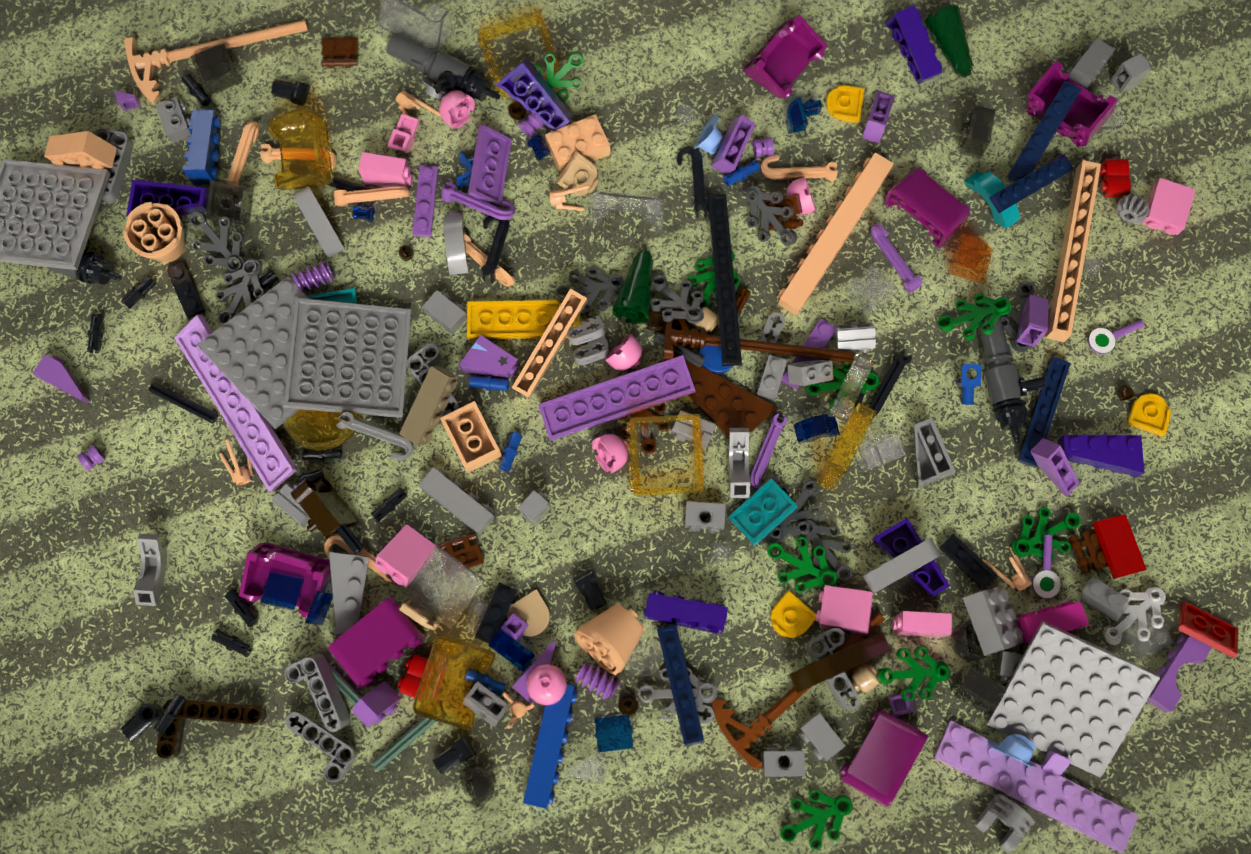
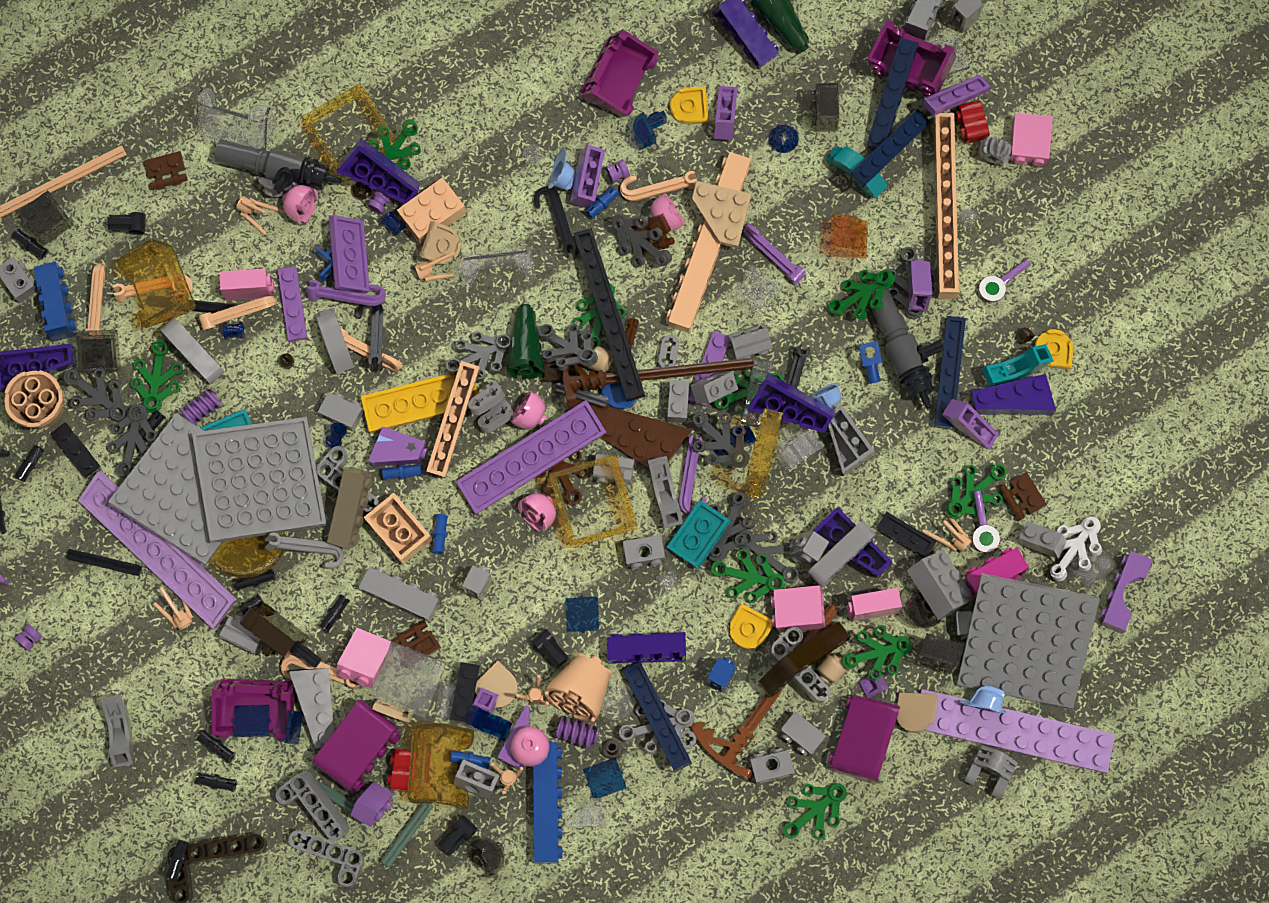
camera: 10 degrees left, 0 degrees up
(141, 721) = (148, 877): black piece -> none
(279, 242) = (157, 379): none -> green plant
(403, 136) = (254, 241): bright pink brick -> none
(434, 333) = (335, 437): none -> clear blue bush
(564, 633) = (535, 694): none -> light nougat plant
(630, 563) = (582, 614): none -> clear blue piece
(754, 657) = (721, 674): none -> blue brick
(807, 427) = (723, 441): none -> dark grey plant
(856, 206) = (722, 211): none -> tan plate
(868, 551) = (807, 547): none -> light grey brick
(888, 406) = (793, 403): none -> dark purple wedge
(919, 406) = (828, 395): none -> light blue piece
(929, 205) = (794, 192): magenta windscreen -> none
(933, 159) = (789, 144): none -> clear blue gear
(943, 742) = (917, 711): none -> tan tile
(1055, 763) = (1027, 704): slope -> none
(1105, 148) = (956, 95): none -> medium lavender plate
(1115, 422) = (1018, 367): none -> teal arch
(1119, 546) = (1047, 486): red tile -> none
(1208, 629) = (1146, 544): red tile -> none

